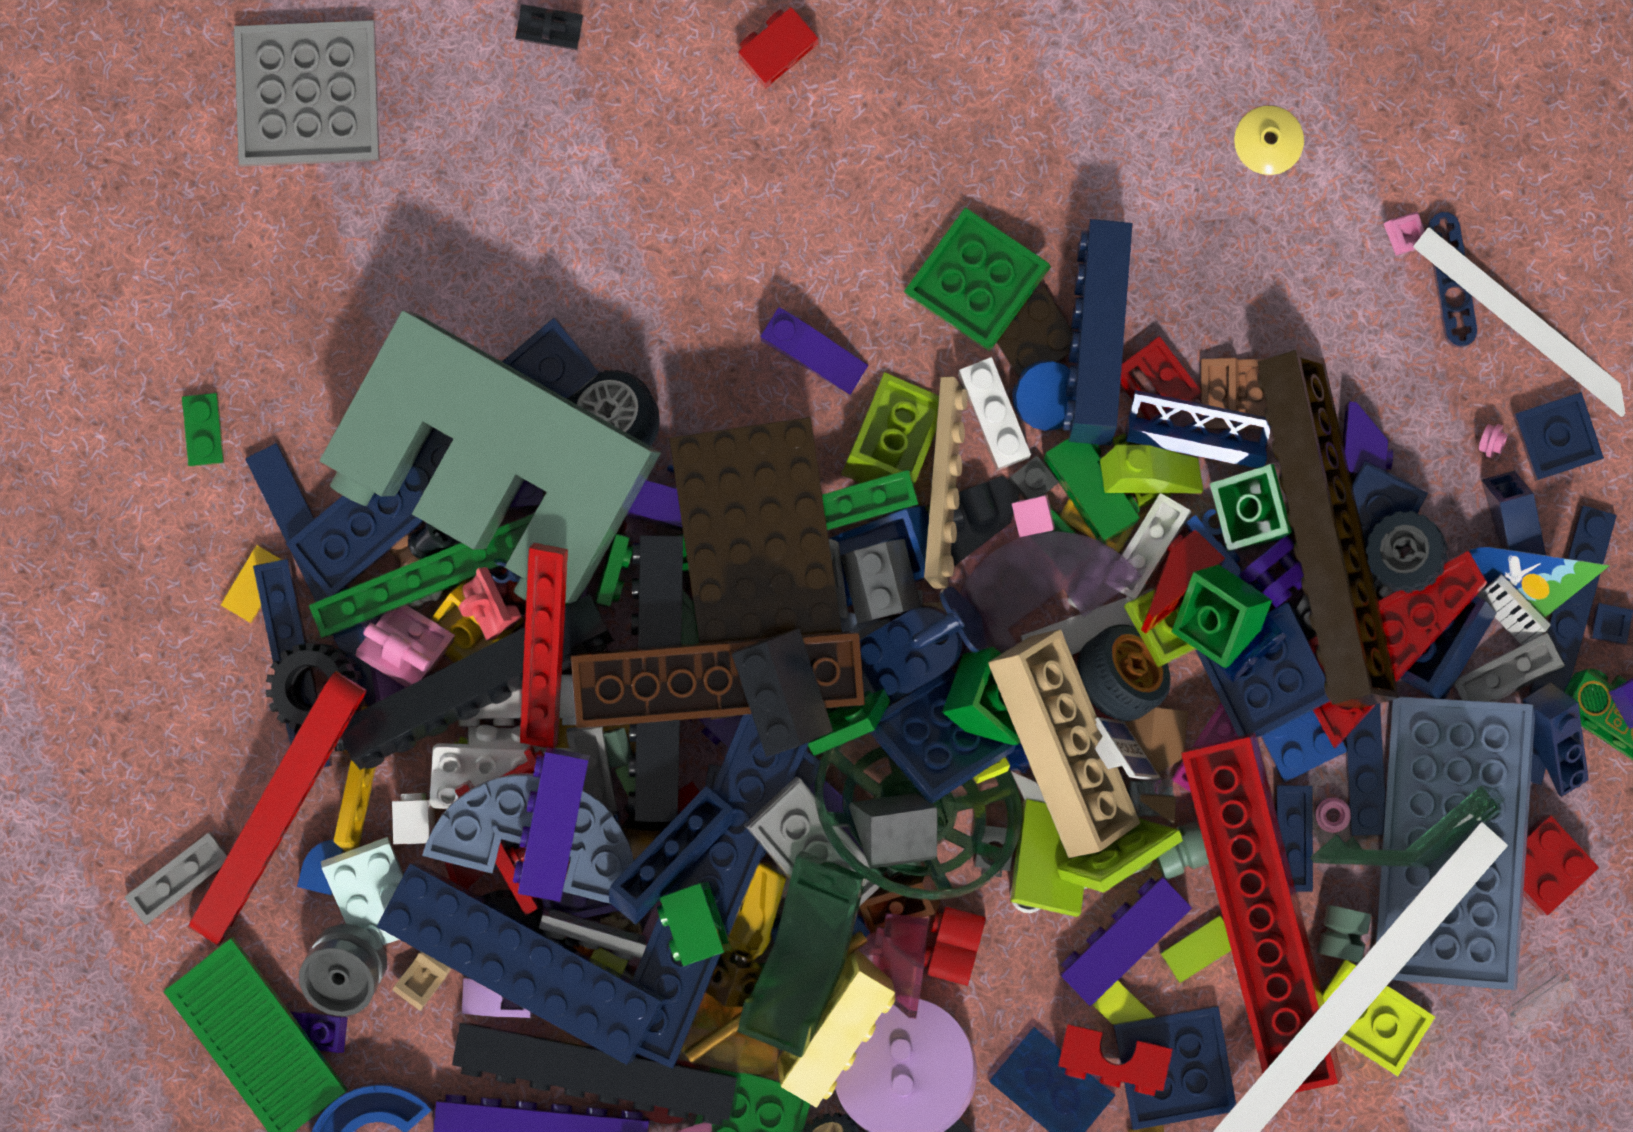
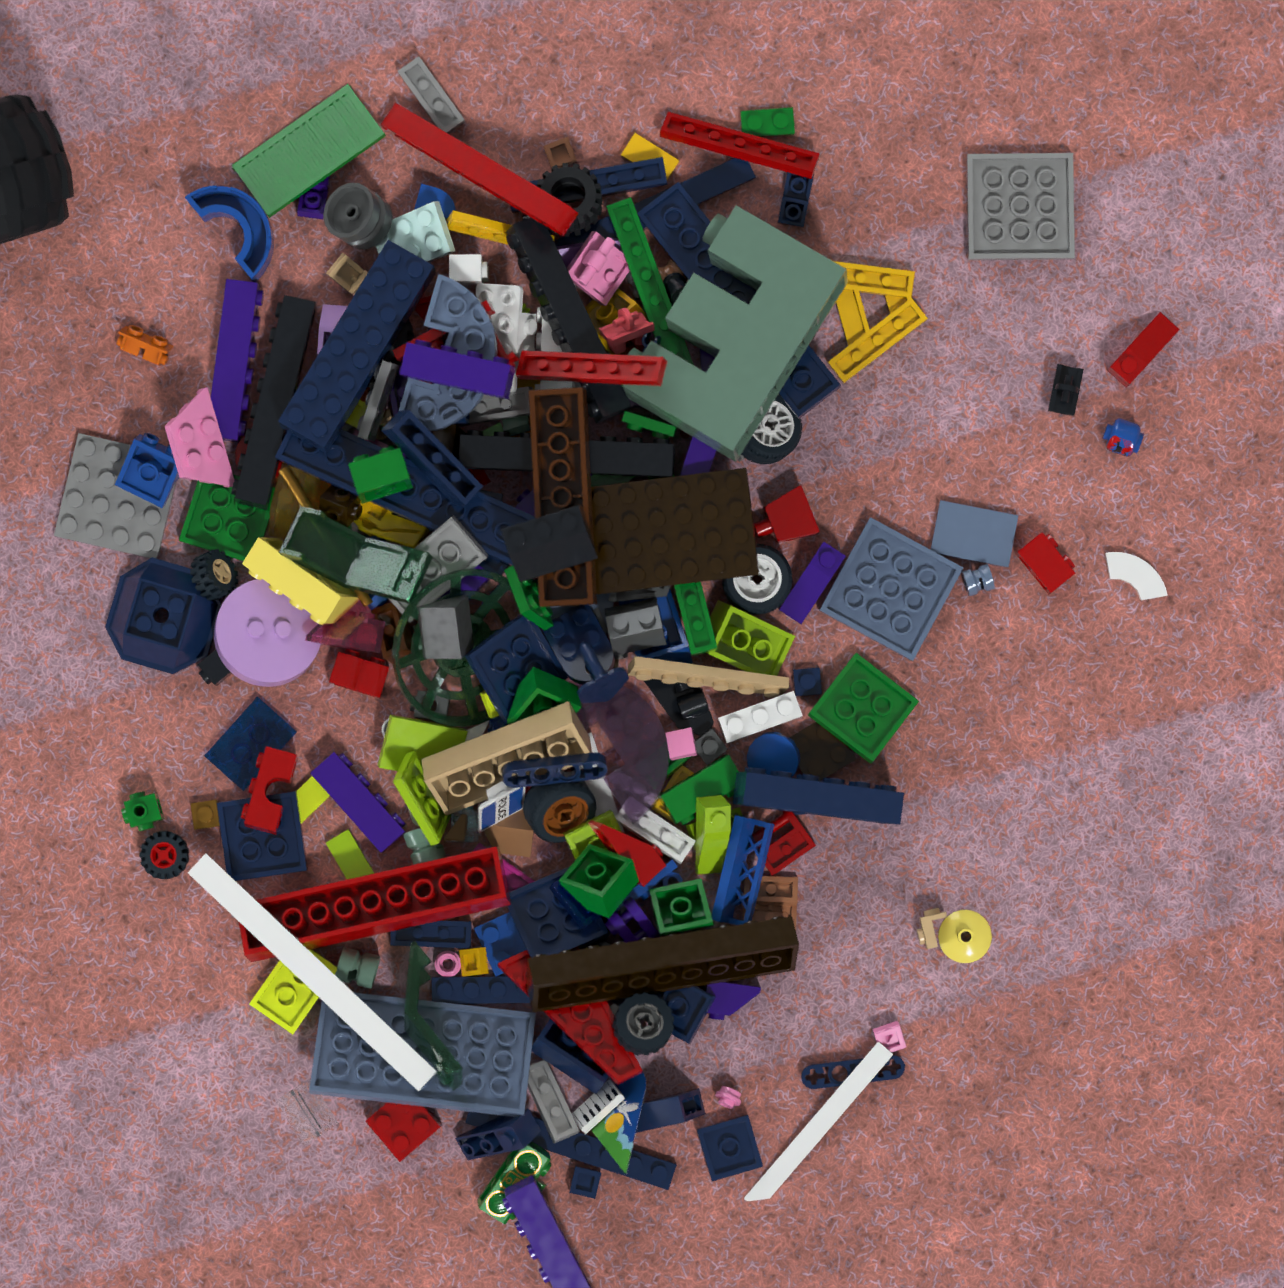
camera: 95 degrees right, 0 degrees up
(234, 465) = (739, 145): none -> red plate
(250, 704) = (560, 152): none -> nougat tile
(302, 389) = (795, 200): none -> dark blue slope
(494, 291) = (866, 343): none -> yellow plate
(728, 384) = (788, 518): none -> red torso
(741, 142) = (974, 534): none -> sand blue tile
(803, 134) = (972, 582): none -> sand blue wheel
(818, 248) = (891, 589): none -> sand blue plate
(828, 406) = (770, 593): none -> wheel
(944, 354) = (807, 682): none -> dark blue plate
(1073, 679) = (554, 767): none -> dark blue beam
(1267, 188) = (926, 933): none -> tan bracket
(1329, 780) = (473, 961): none -> yellow plate

